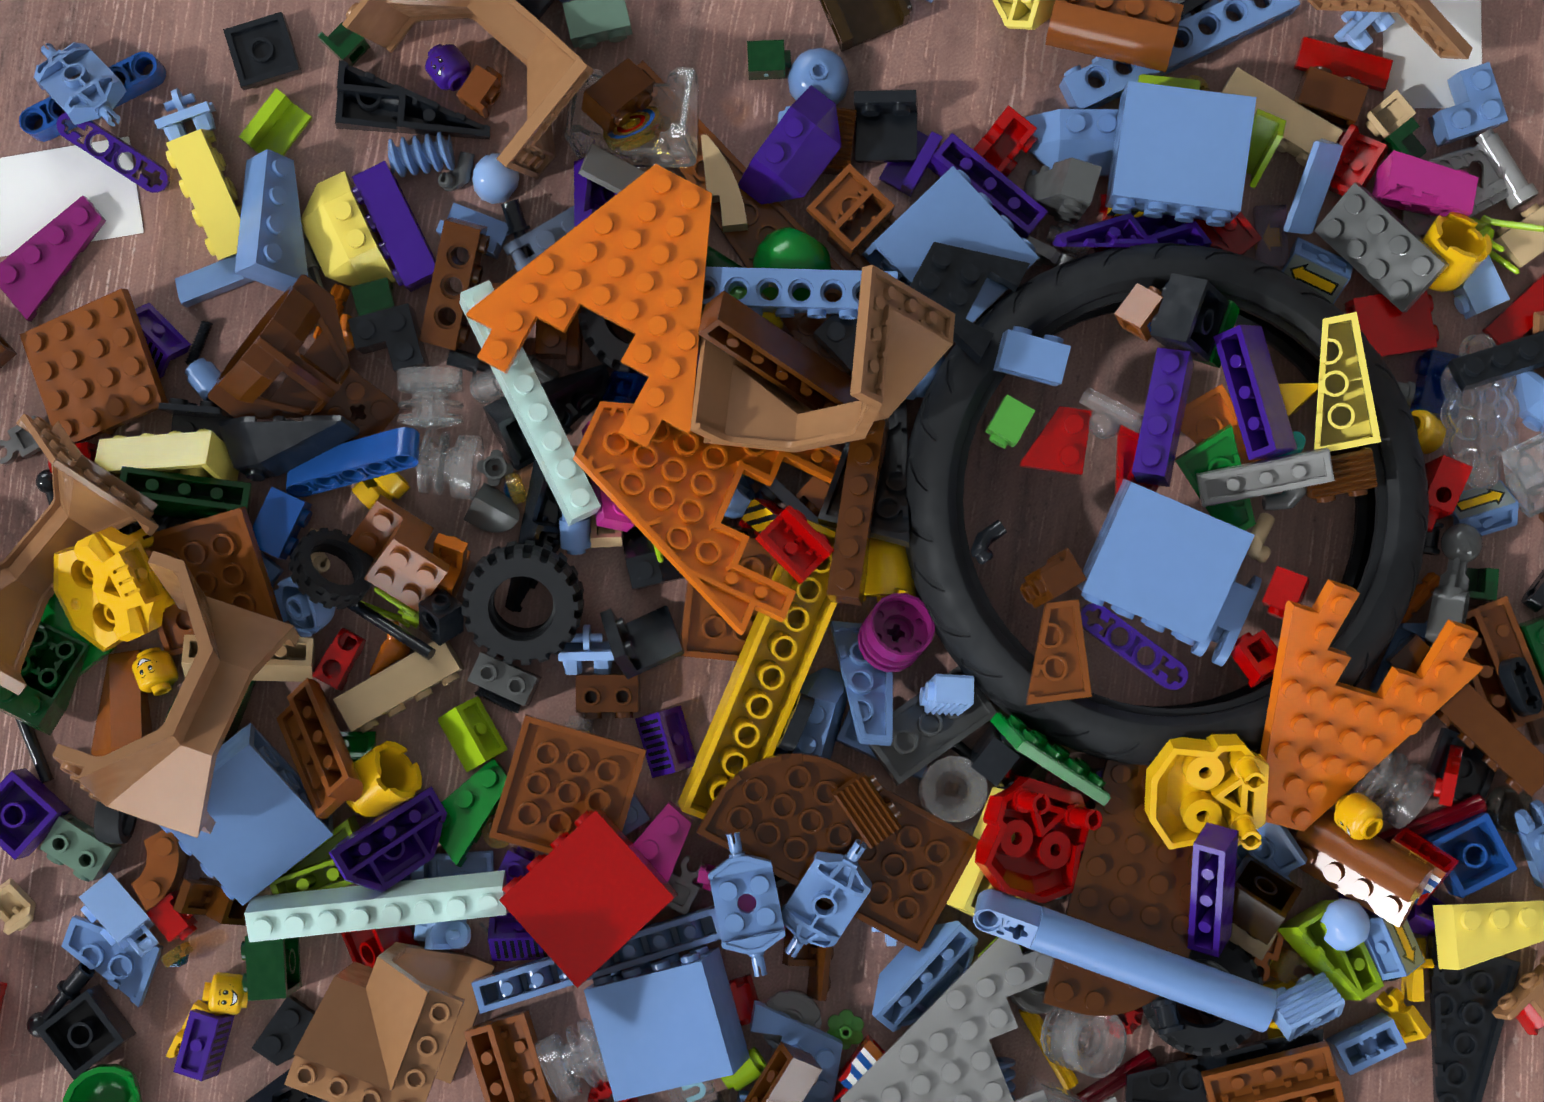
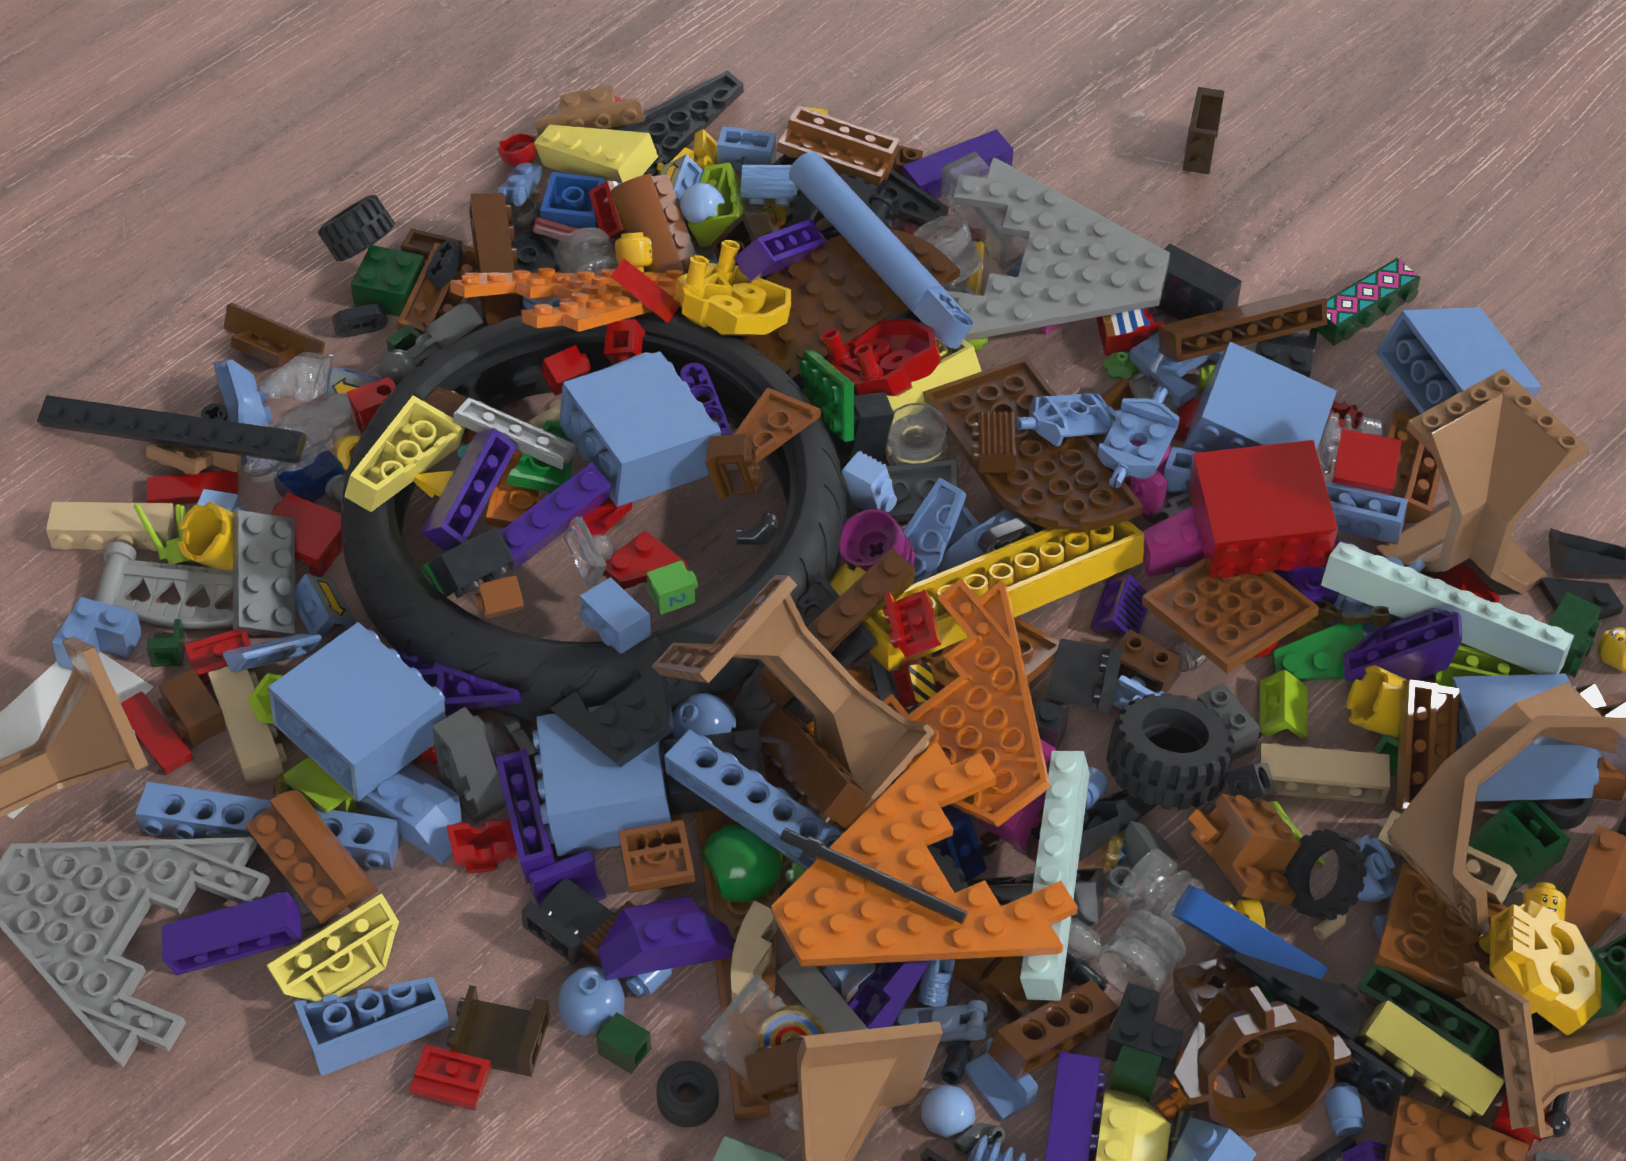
camera: 150 degrees left, 35 degrees down
(280, 522) = (1348, 952): blue brick -> none
(339, 659) = (1364, 818): red leg -> none
(389, 653) = (1313, 805): orange animal -> none
(393, 630) = (1303, 812): black bar -> none
(463, 851) = (1328, 612): none -> dark brown piece
(537, 1029) = (1366, 461): none -> red tile
(694, 38) = (687, 1112): none -> black tyre
(710, 257) = (815, 849): none -> black bar
(920, 978) = (1050, 355): medium blue wedge -> none
(1286, 729) = (645, 290): none -> red sticker
(1389, 115) = (155, 670): tan bracket -> none
(1424, 186) = (191, 592): dark pink wedge -> none
(1446, 787) = (547, 239): red wing -> none

